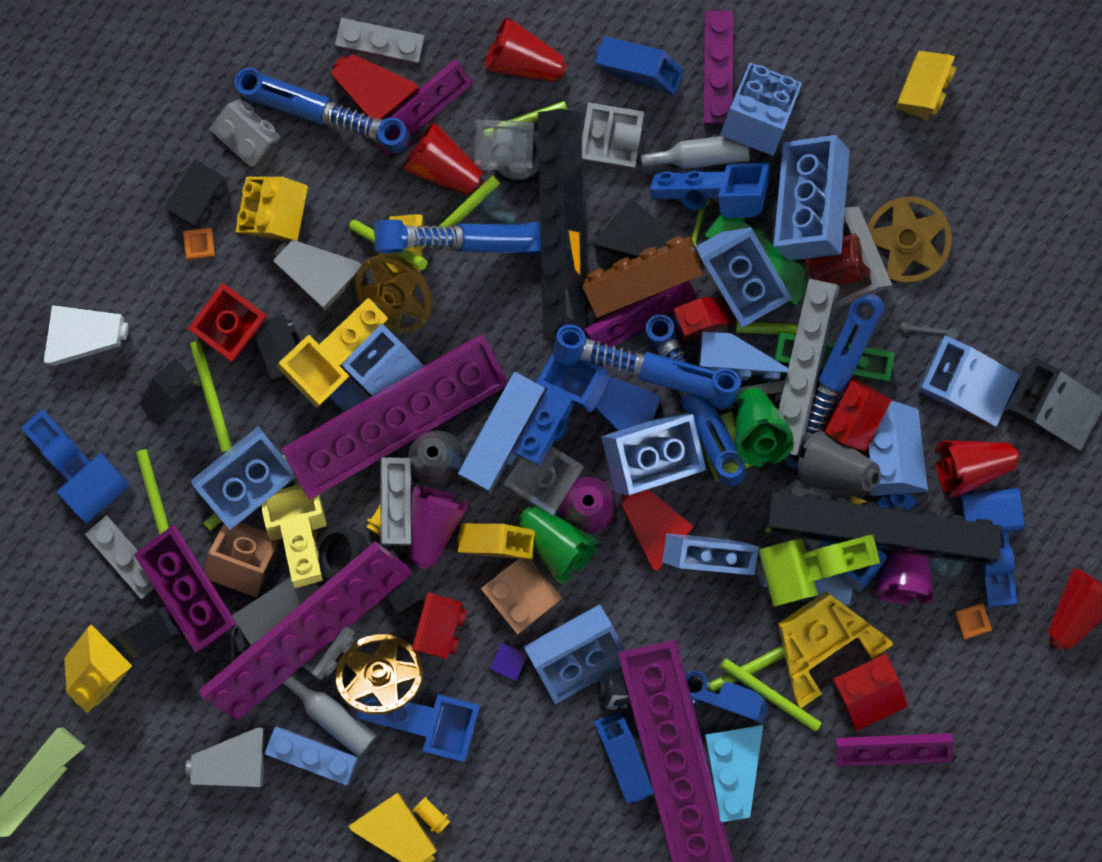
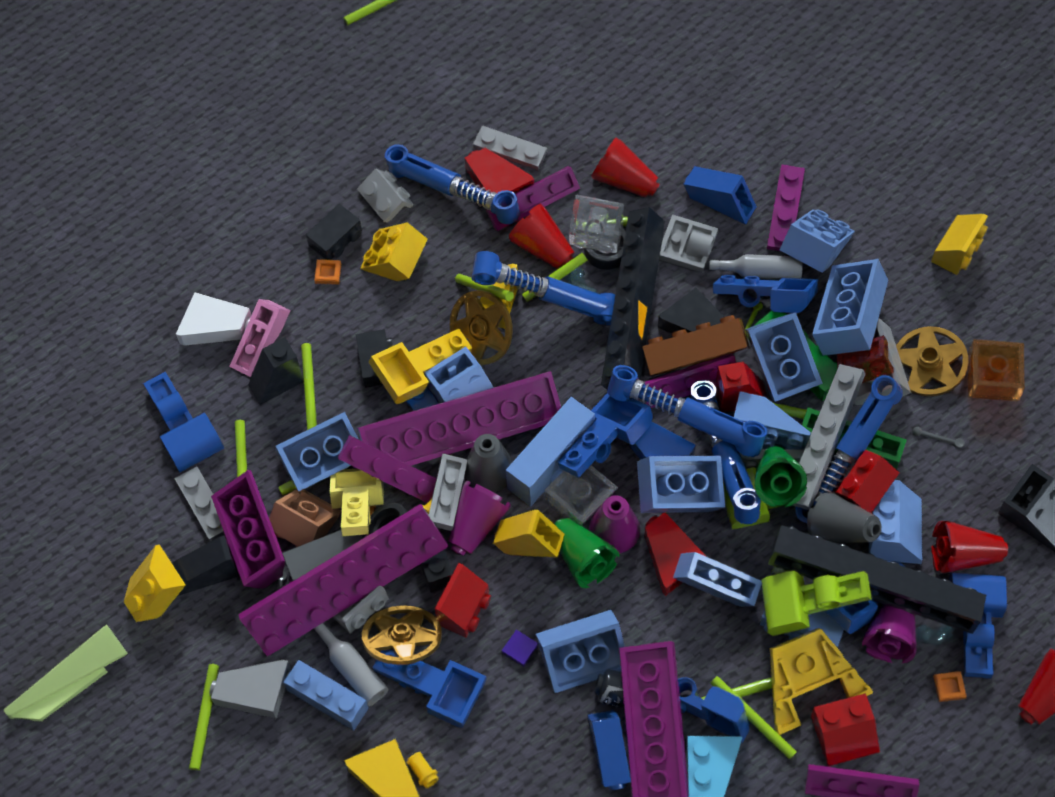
camera: 15 degrees right, 20 degrees down
(139, 343) = (260, 332): none -> bright pink slope
(185, 800) = (203, 719): none -> lime bar
(227, 322) = (335, 326): red slope -> none
(316, 271) = (420, 304): light grey slope -> none
(325, 489) = (388, 469): none -> magenta plate
(521, 594) = (541, 591): nougat slope -> none
(968, 381) = (969, 479): medium blue slope -> none
(983, 242) = (996, 370): none -> clear orange brick

